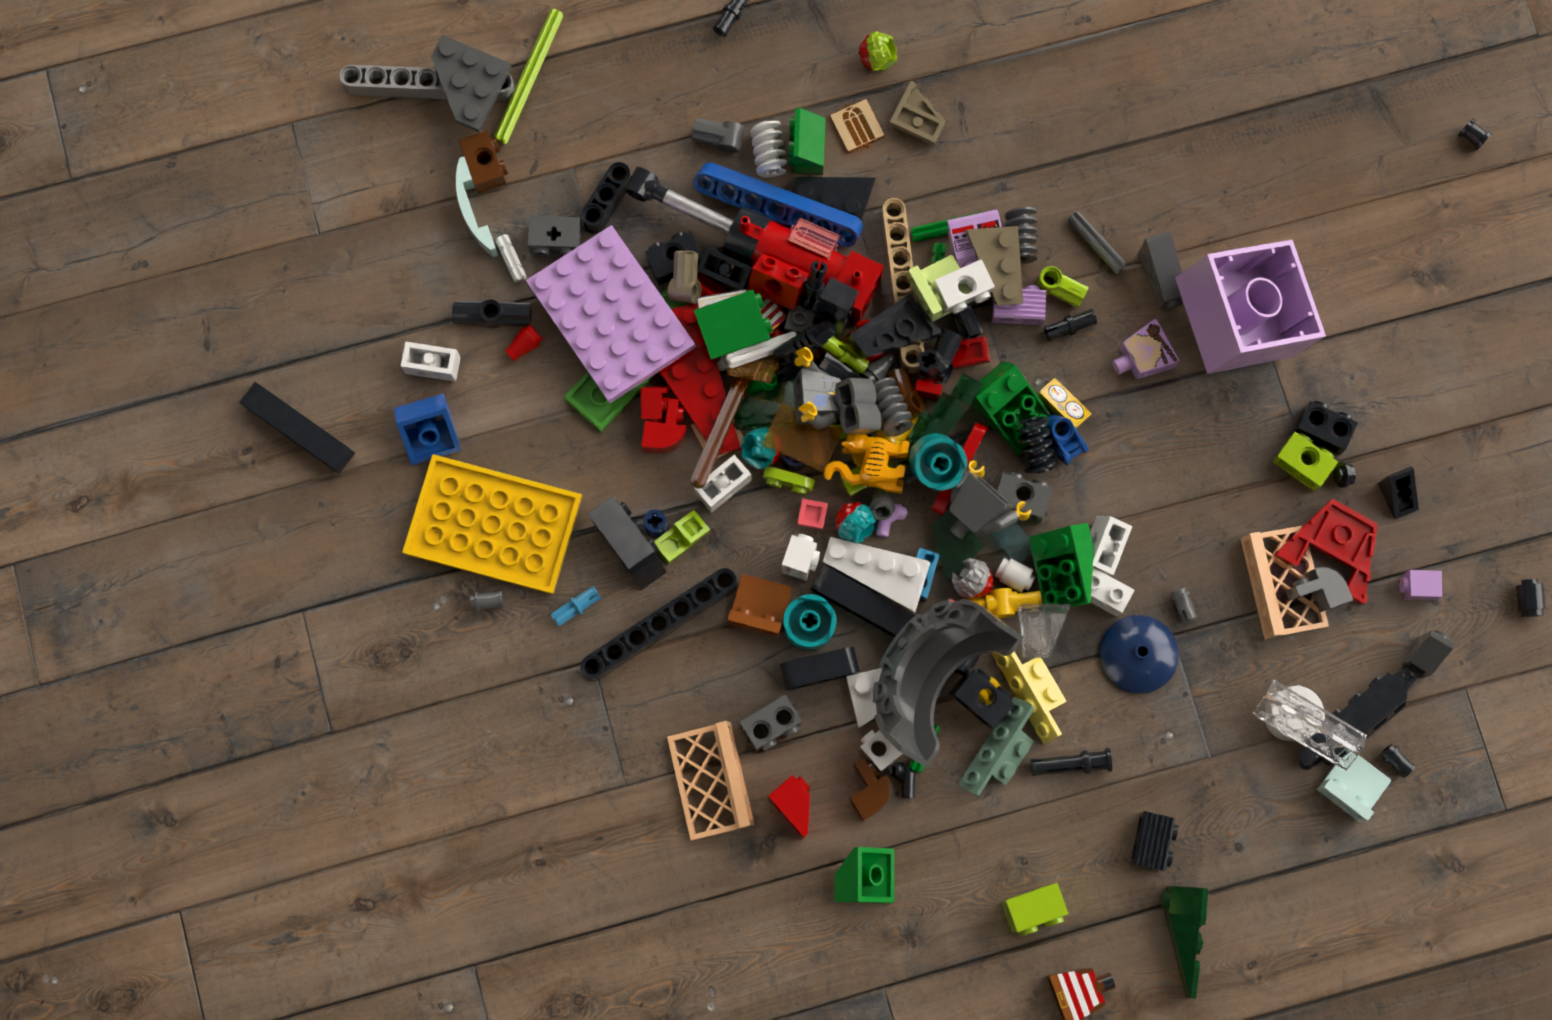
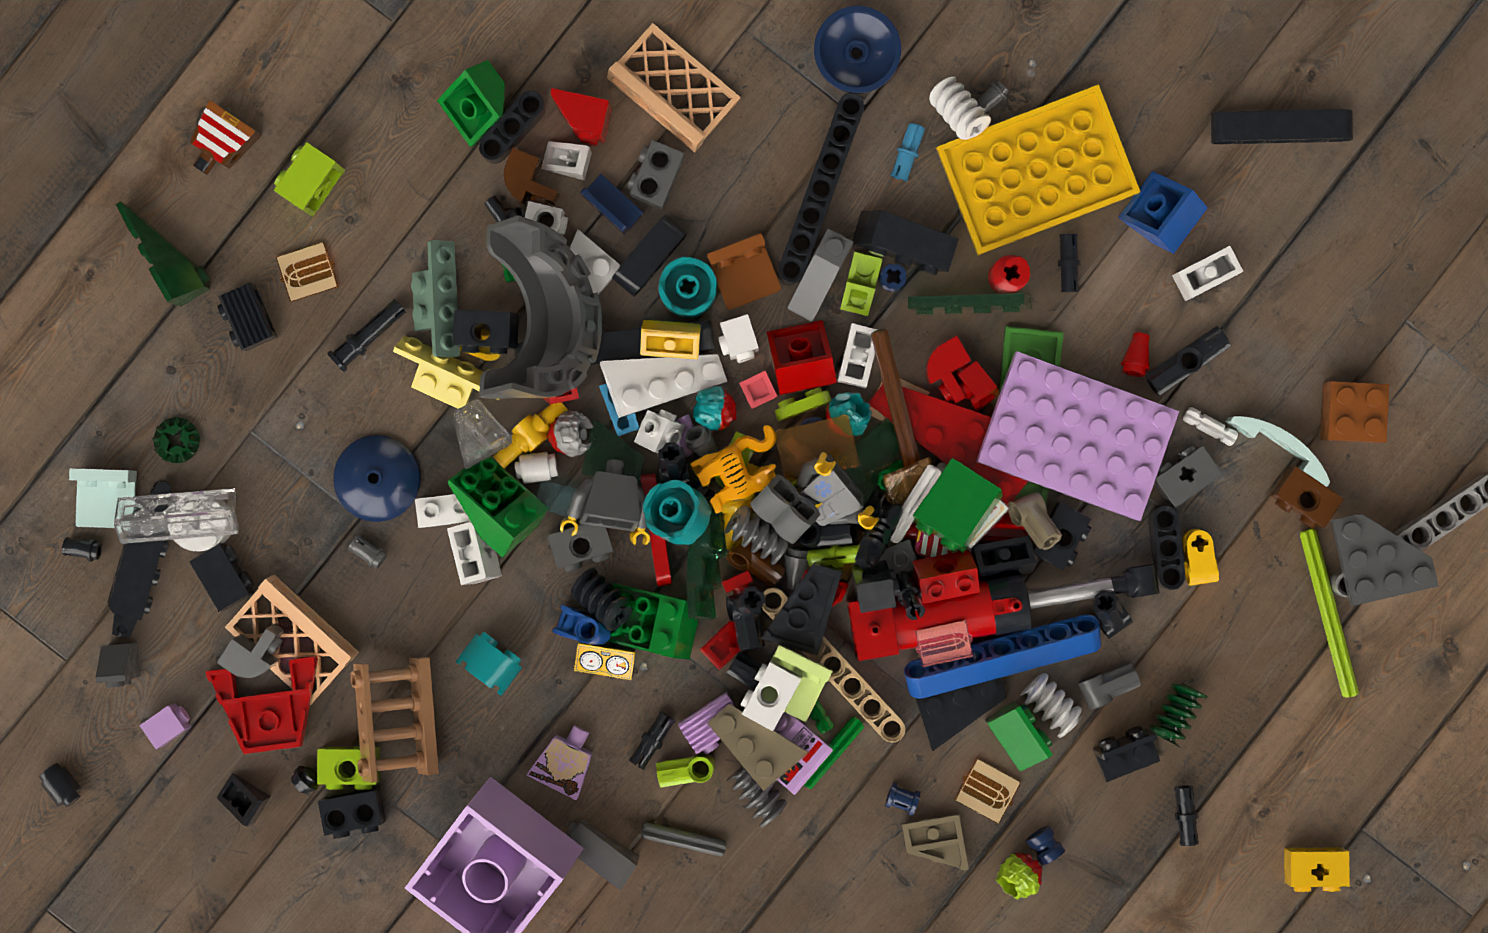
camera: 145 degrees right, 10 degrees up
(404, 194) = (1354, 412): none -> dark orange brick
(517, 606) = (959, 109): none -> white piece
(521, 442) = (1069, 262): none -> black pin
(540, 694) = (863, 30): none -> dark blue dish
(569, 451) = (1020, 274): none -> red piece
(589, 172) = (1199, 563): none -> yellow piece
(646, 485) = (979, 303): none -> clear green wing
(681, 178) = (1110, 614): none -> black piece
(685, 81) = (1177, 713): none -> dark green piece
(704, 562) = (820, 275): none -> slope
(741, 82) = (1126, 753): none -> black bracket
(763, 514) = (801, 357): none -> red slope
(820, 727) = (612, 204): none -> dark blue panel
(829, 784) = (567, 159): none -> white slope
(844, 60) = (1045, 845): none -> dark blue wheel
(850, 593) = (670, 339): none -> yellow slope
(864, 830) = (514, 113): none -> black beam
(907, 533) = (658, 429): none -> white brick
(916, 500) = (673, 464): none -> black piece
(921, 160) = (902, 799): none -> dark blue bush
(1083, 845) = (307, 272): none -> piece
(1150, 458) = (489, 663): none -> teal brick
(1232, 448) = (422, 730): none -> medium nougat fence
(1260, 784) = (189, 437): none -> dark green gear
(1305, 661) = (223, 576): none -> black brick

